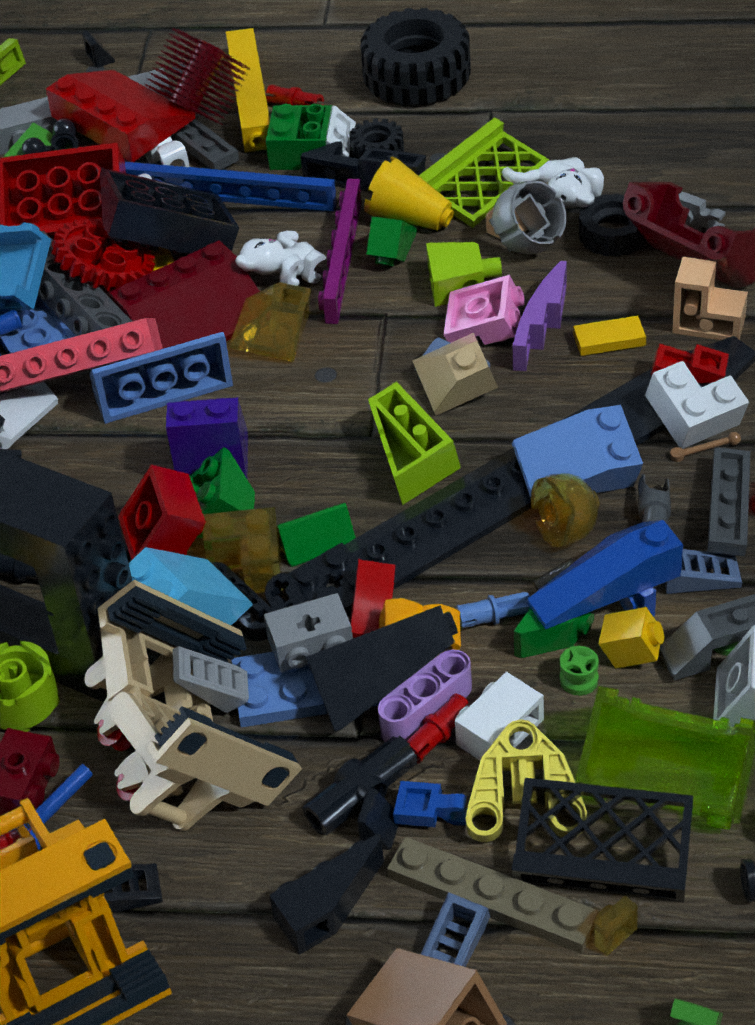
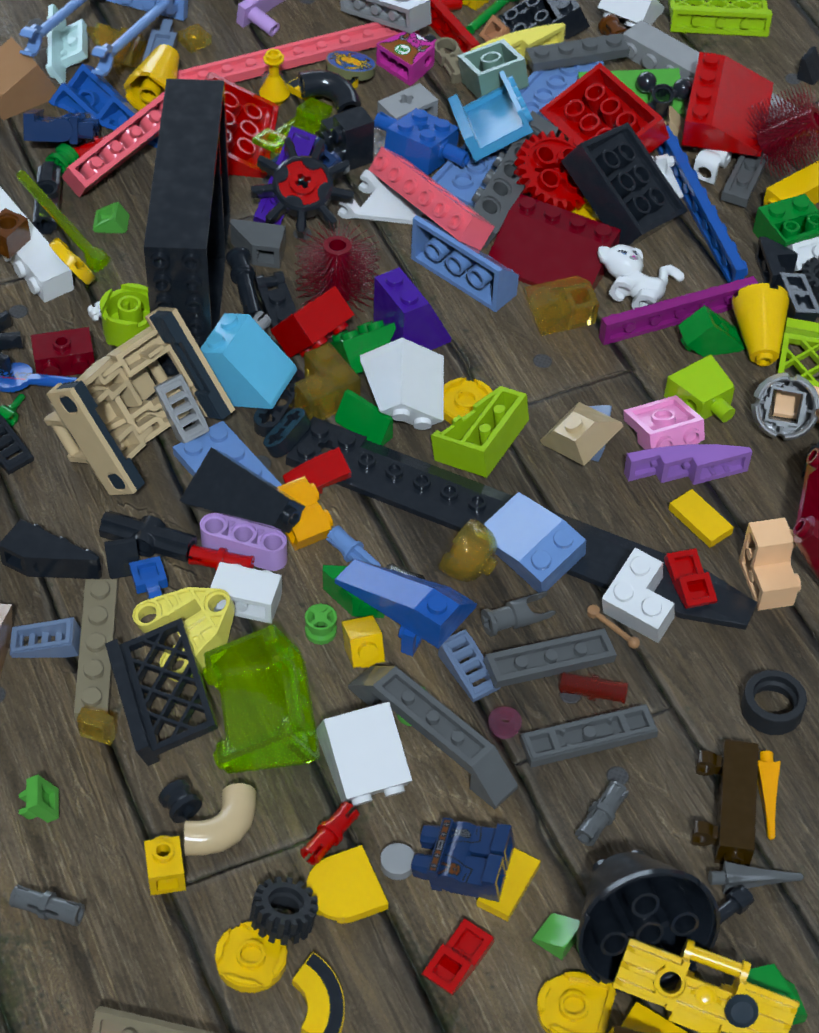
camera: 55 degrees right, 5 degrees up
(98, 462) = (337, 266): none -> dark red piece
(306, 630) = (254, 446): light grey brick -> none
(307, 471) = (407, 382): none -> white slope
(344, 450) = (461, 396): none -> yellow tile

